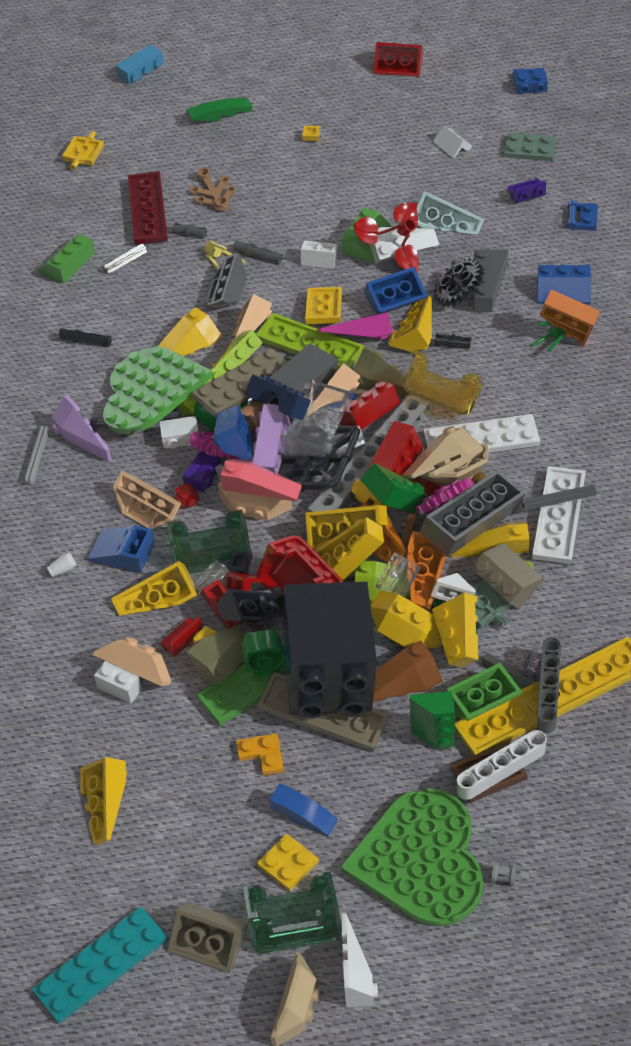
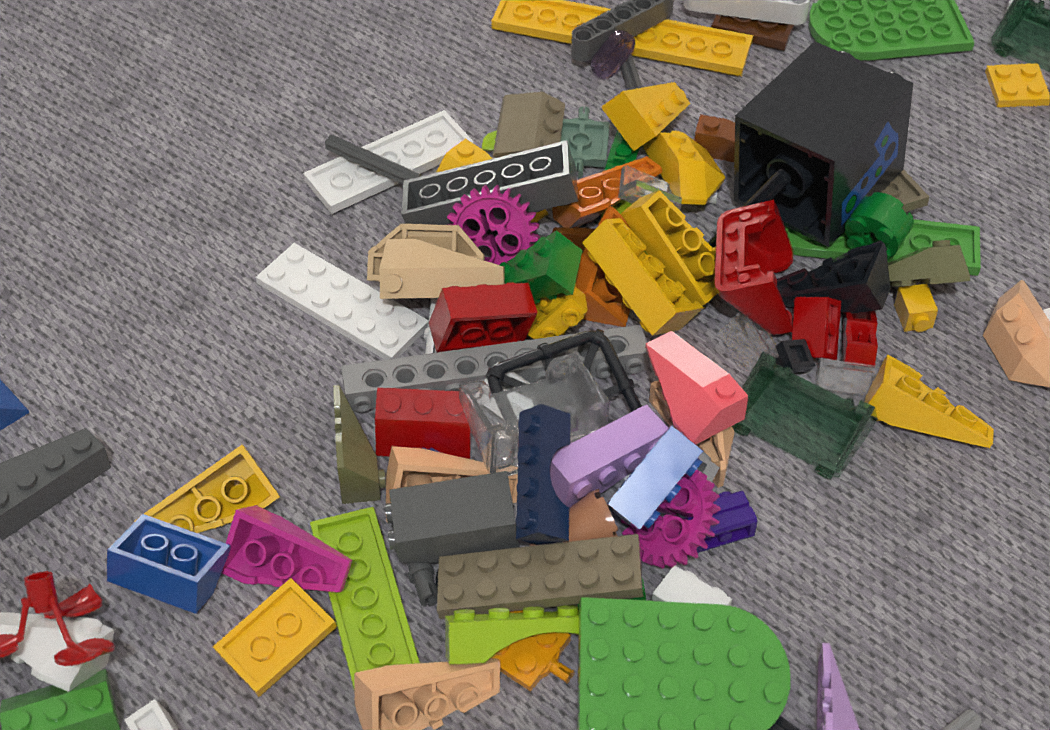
camera: 140 degrees left, 0 degrees up
(62, 565) = (1021, 541): white cone -> none
(123, 547) = (923, 495): blue slope -> none
(144, 502) = (831, 523): light nougat wedge -> none
(181, 636) = (938, 339): red panel -> none
(186, 496) = (772, 503): red plate -> none
(265, 748) = (950, 181): light orange plate -> none
(302, 810) = (968, 105): blue slope -> none
(433, 718) = (765, 50): green slope -> none
(439, 390) = (305, 361): clear yellow windscreen -> none
(449, 291) = (57, 477): black gear -> none
(450, 587) = (606, 148): white slope -> none
(452, 340) = (198, 440): black pin -> none
(483, 692) = (691, 60): bright green slope -> none
(555, 332) = (77, 342): green plant -> none
(569, 315) = (54, 310): orange wedge -> none

